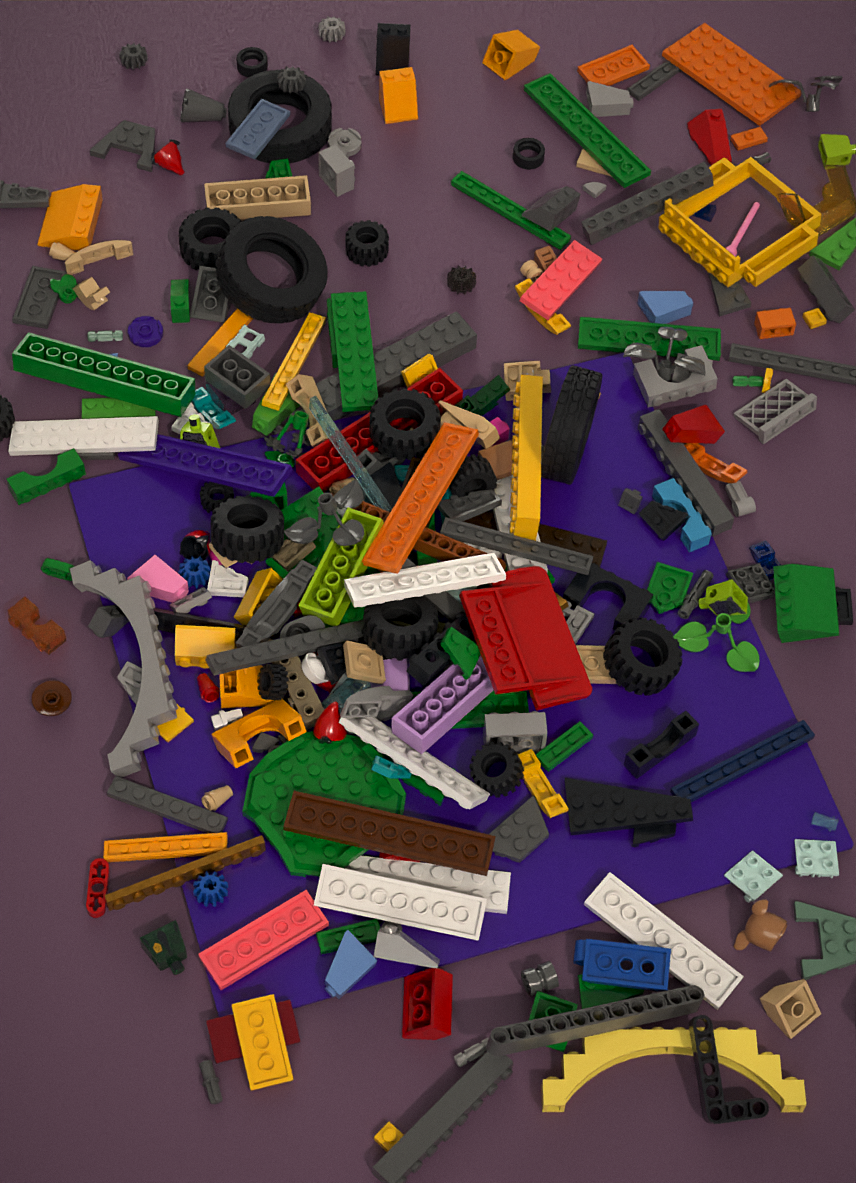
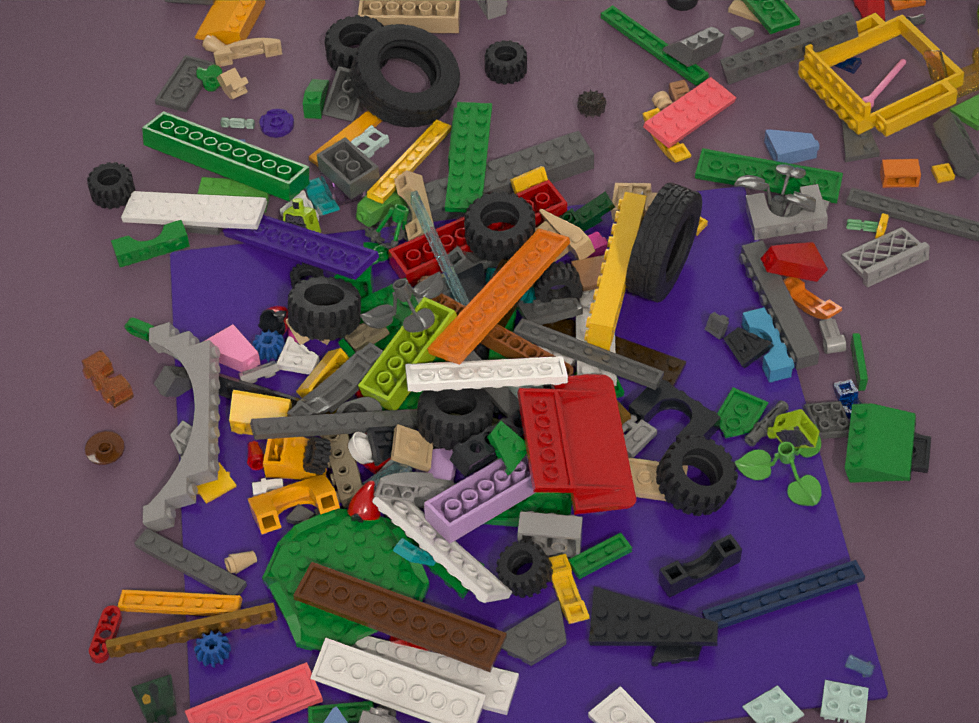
camera: 15 degrees right, 5 degrees down
(770, 521) = (859, 362): none -> green tile

